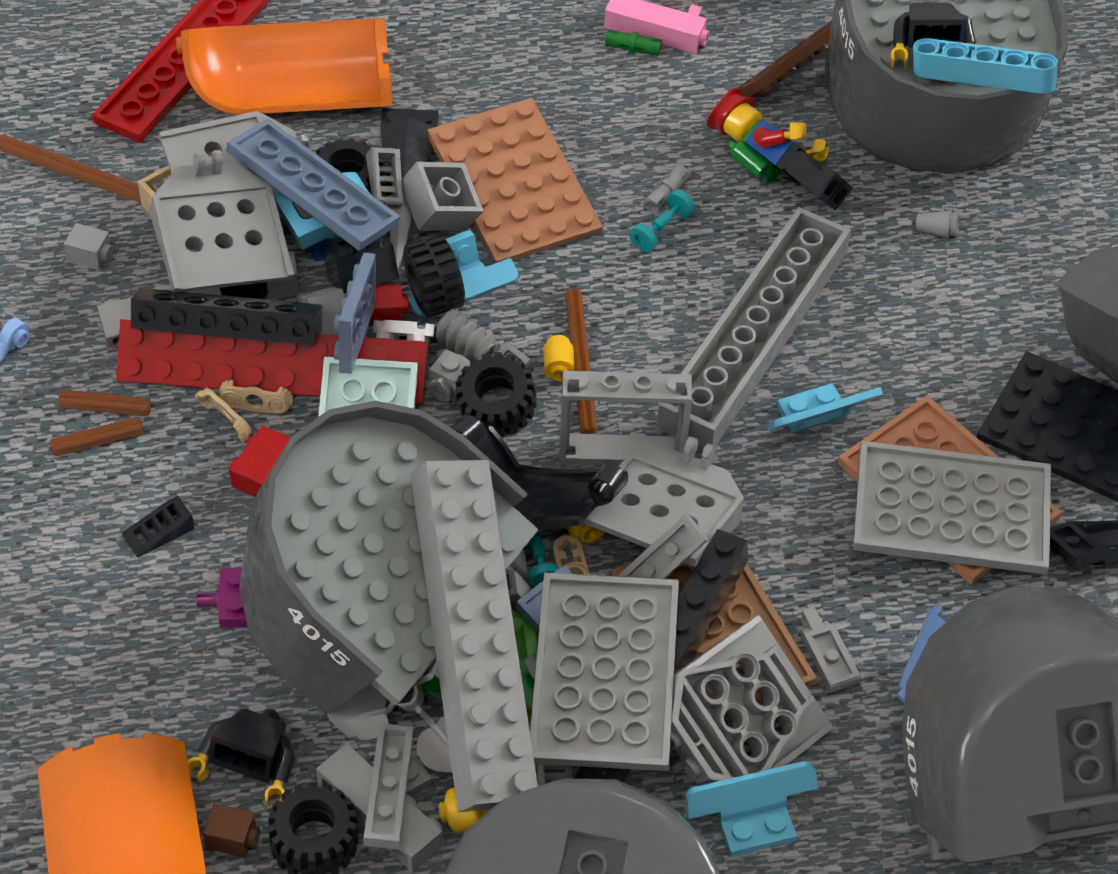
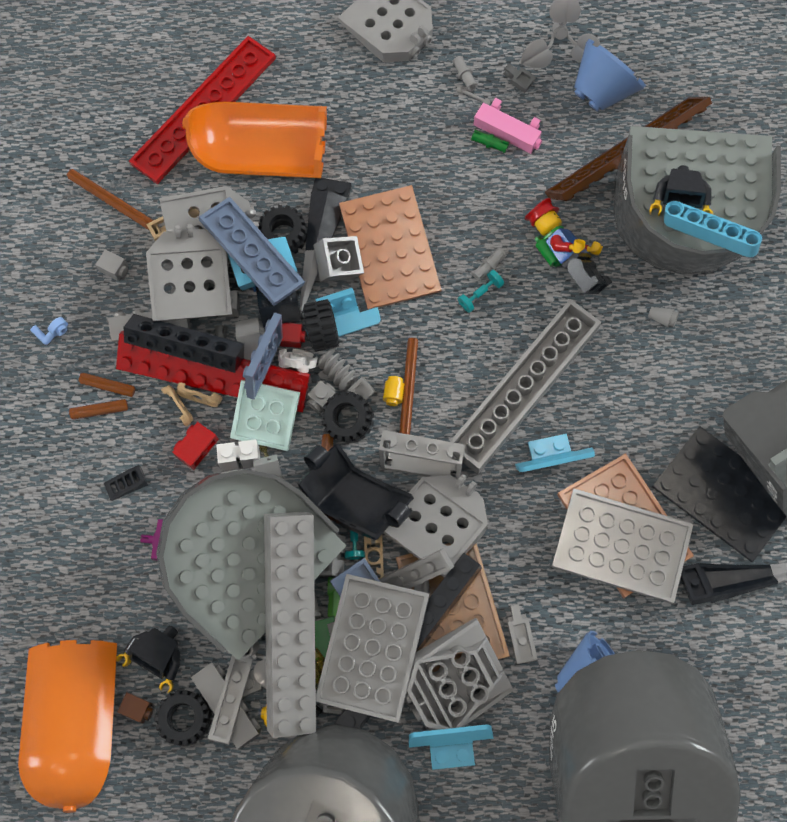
camera: 15 degrees right, 20 degrees up
(392, 157) = (311, 234): light grey slope -> none

